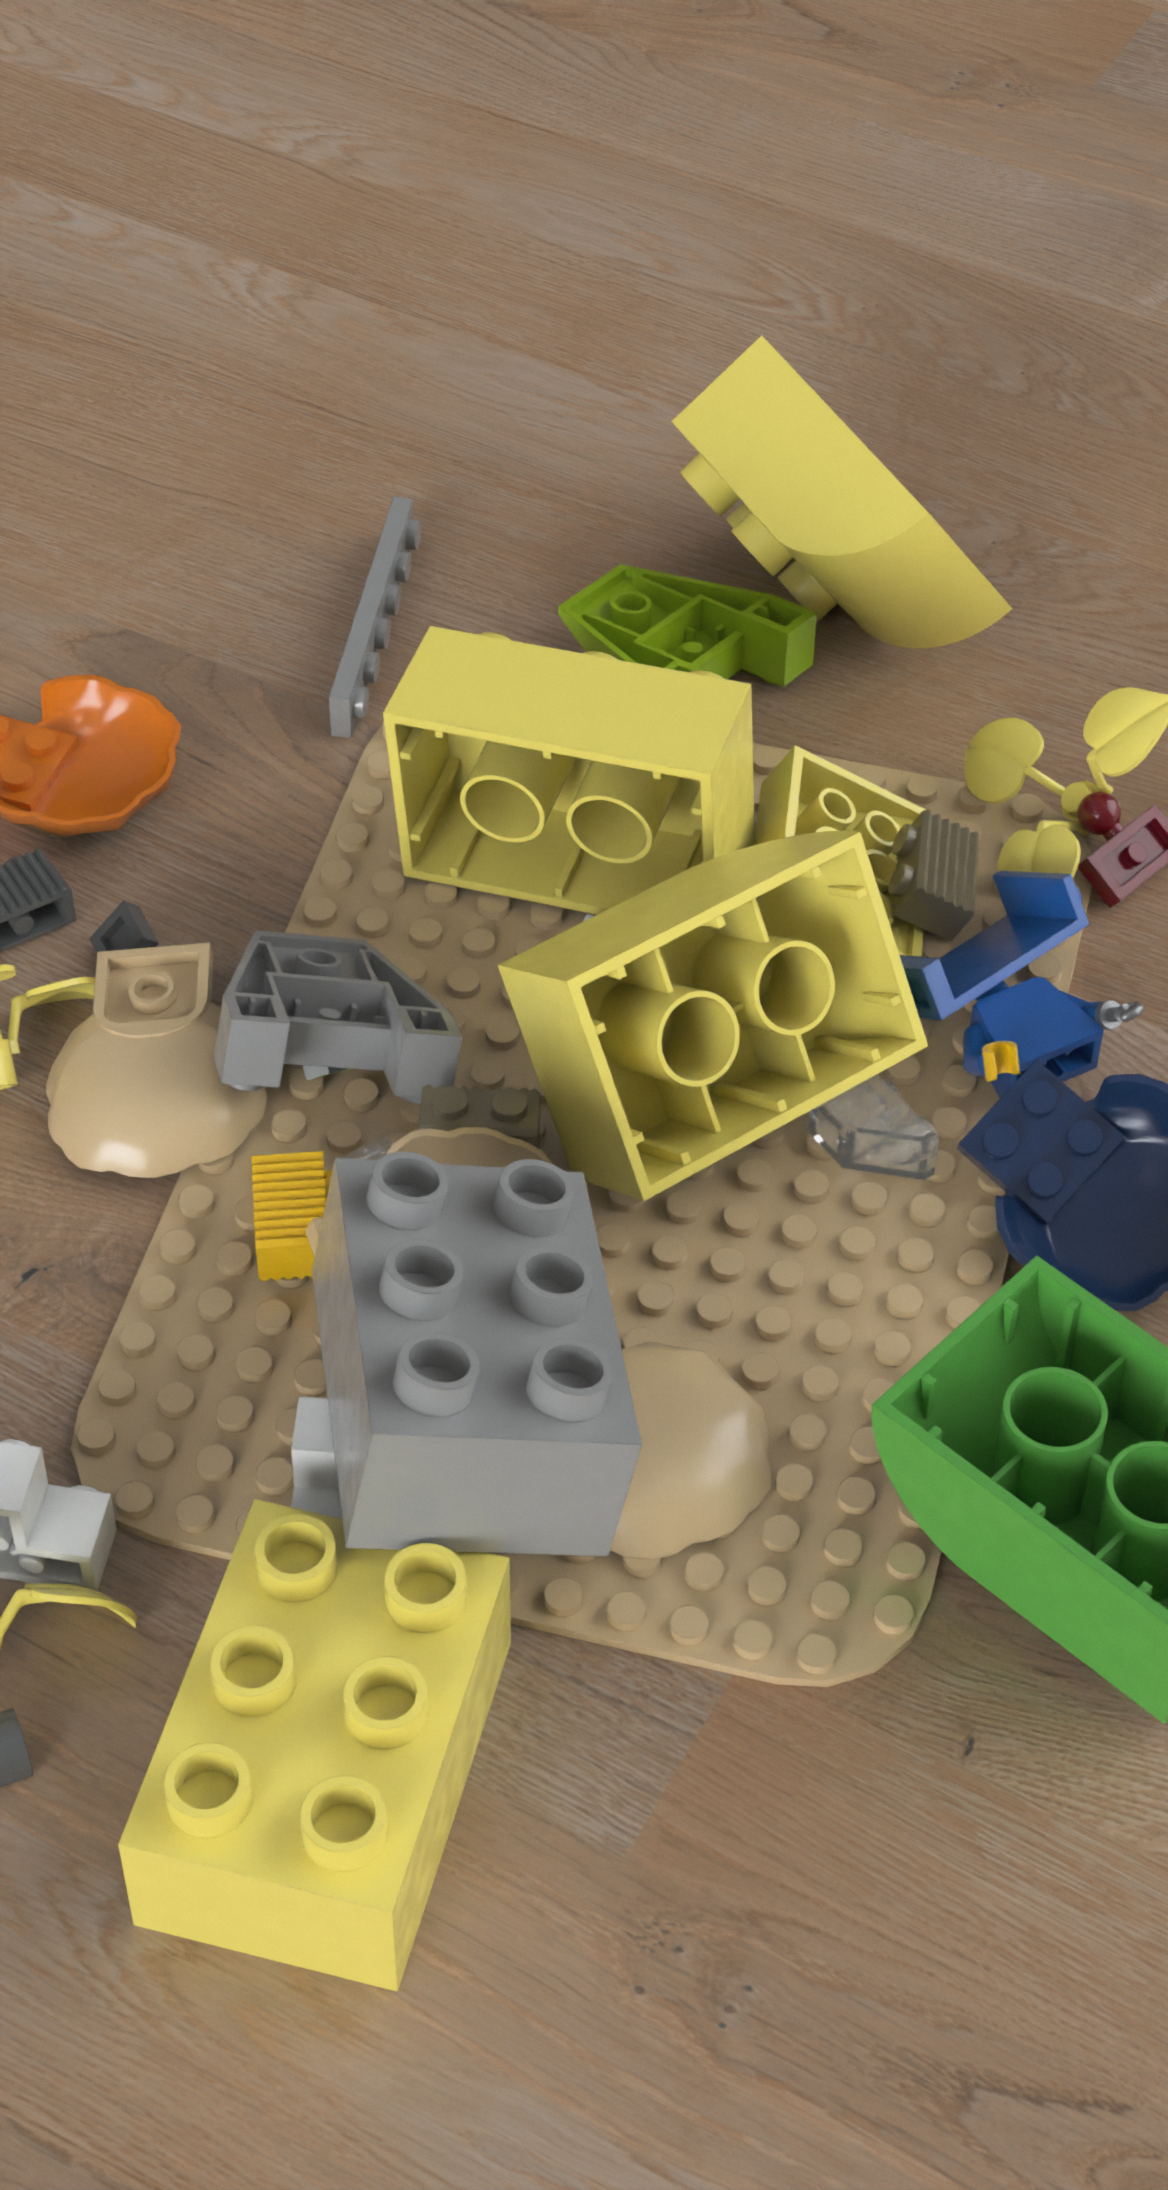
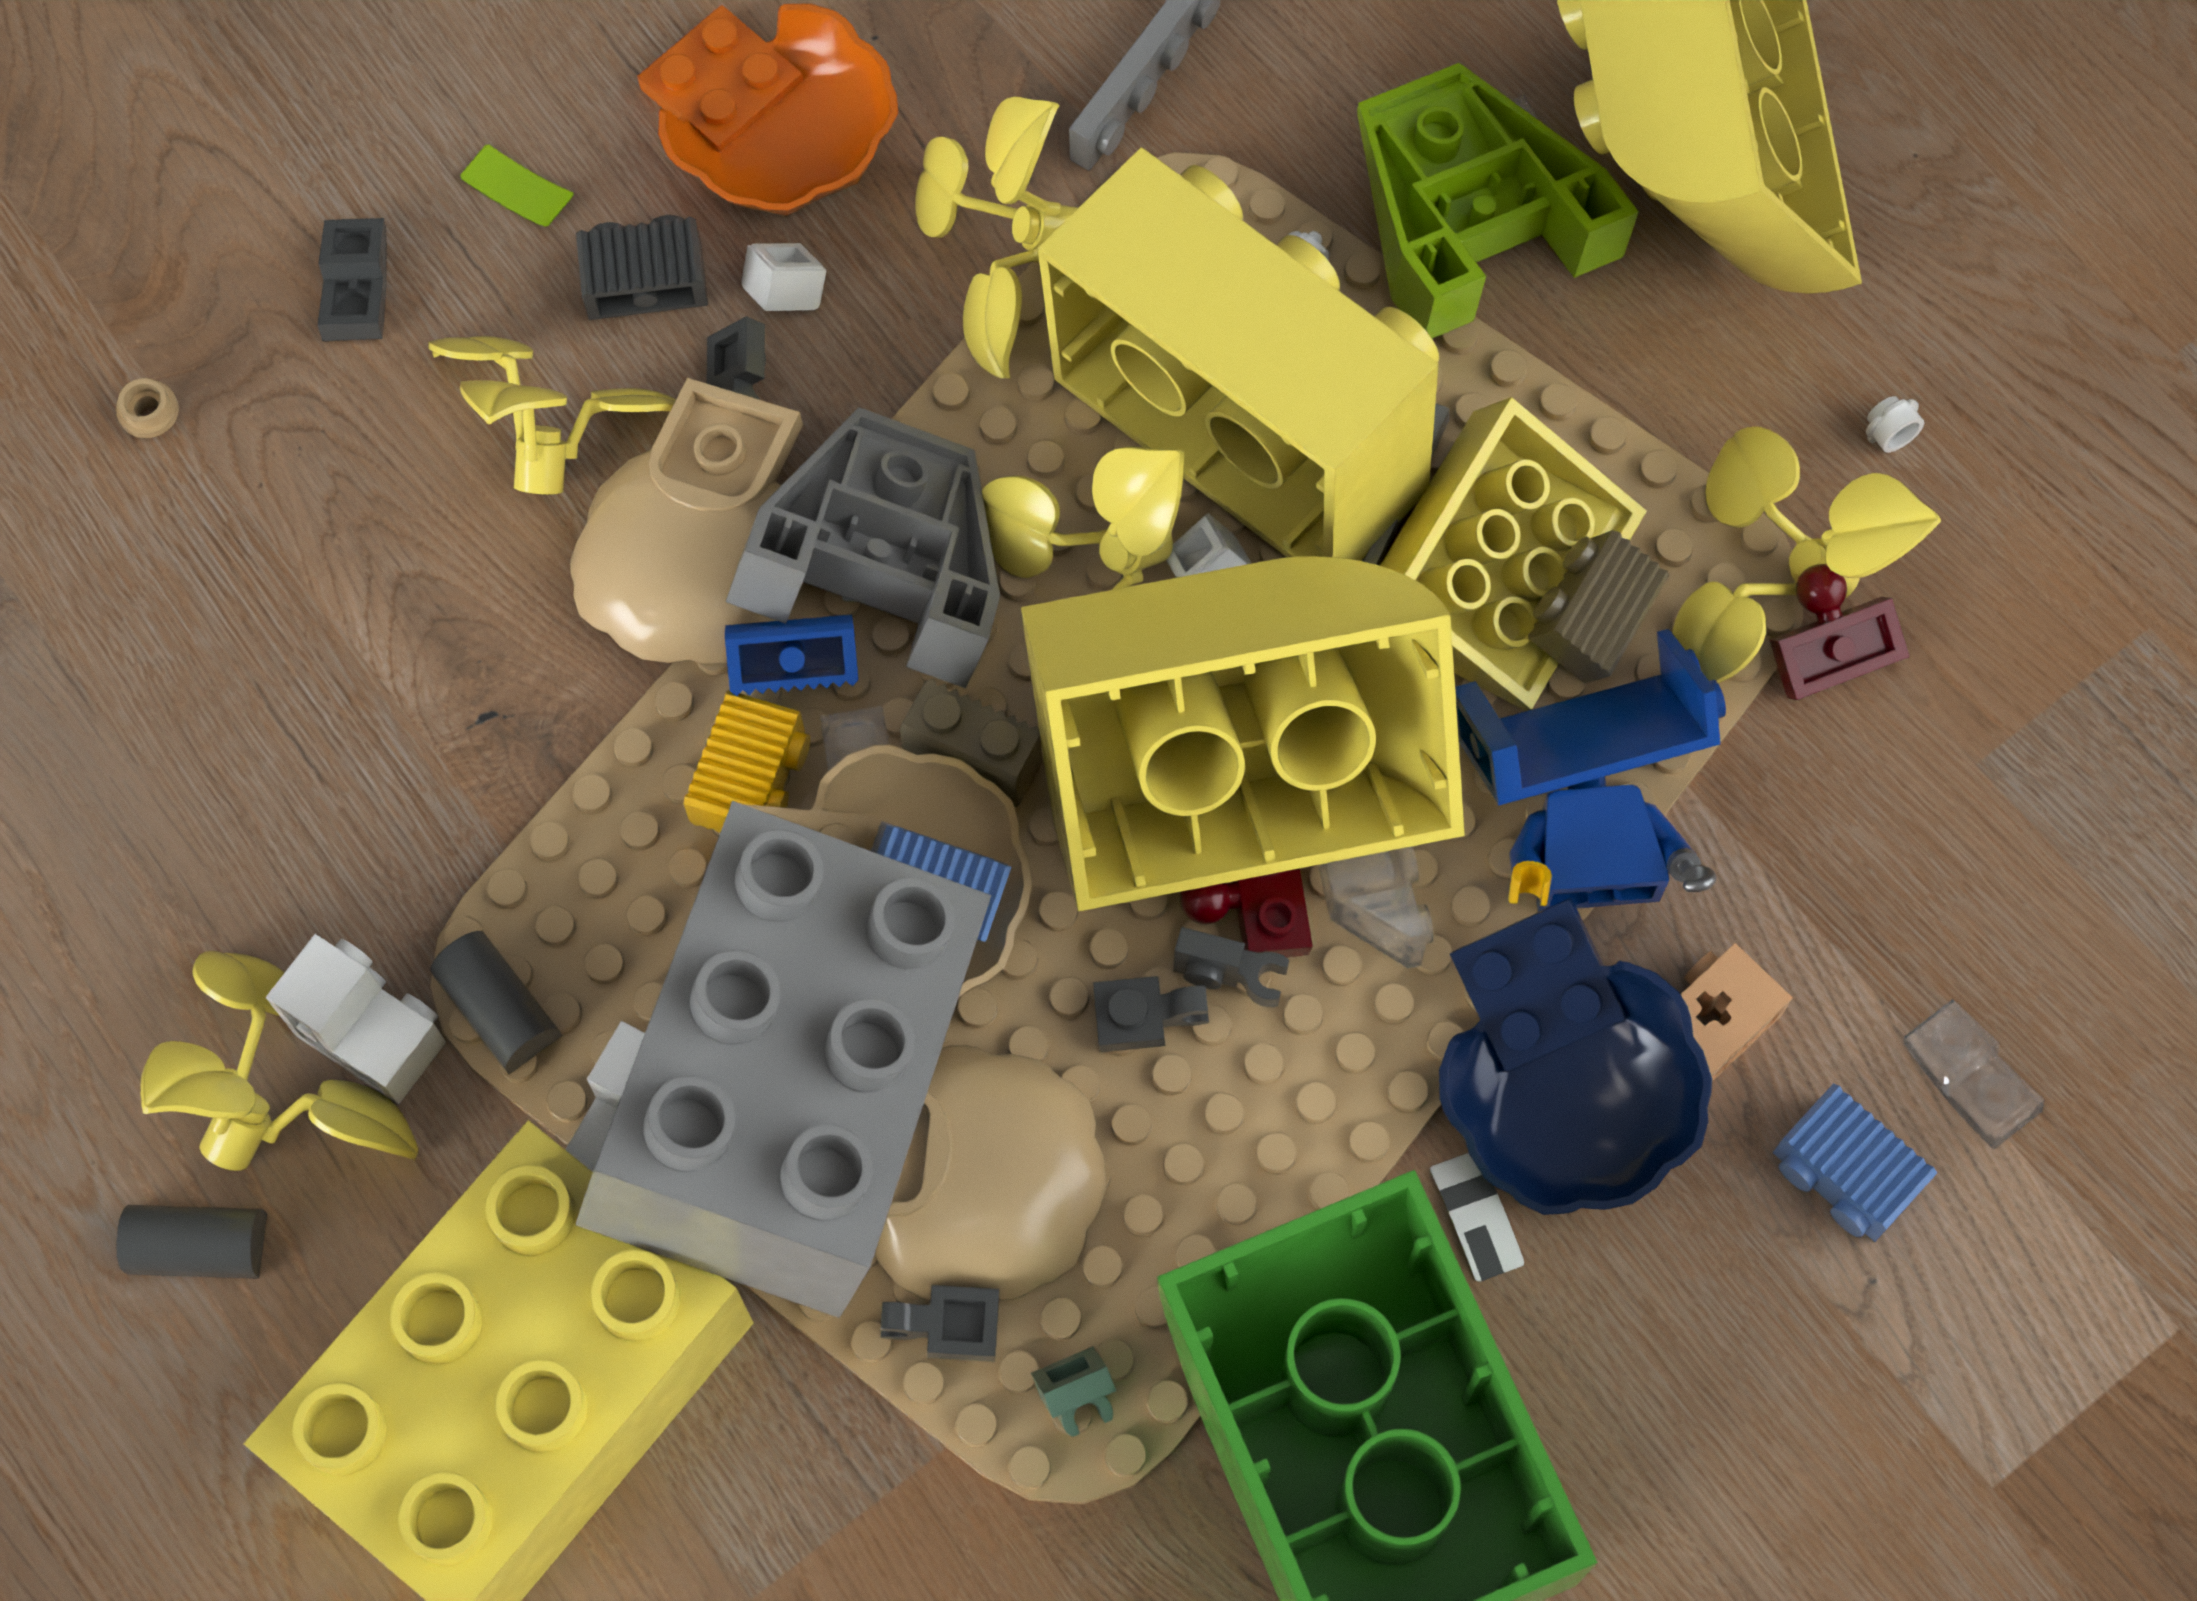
camera: 25 degrees right, 20 degrees up
(133, 877) = (783, 277): none -> white slope
(153, 1465) = (494, 1000): none -> dark grey brick
(293, 1112) = (791, 654): none -> blue brick
(335, 832) = (1011, 152): none -> light yellow plant
(535, 875) = (1130, 488): none -> light yellow plant
(693, 1553) = (957, 1322): none -> dark grey plate
(727, 1283) = (1135, 1014): none -> dark grey plate
(774, 1213) = (1218, 961): none -> dark grey plate
(784, 1166) = (1268, 911): none -> dark red plate
(825, 1563) = (1073, 1383): none -> sand green tile
(1079, 701) = (1894, 423): none -> white plate

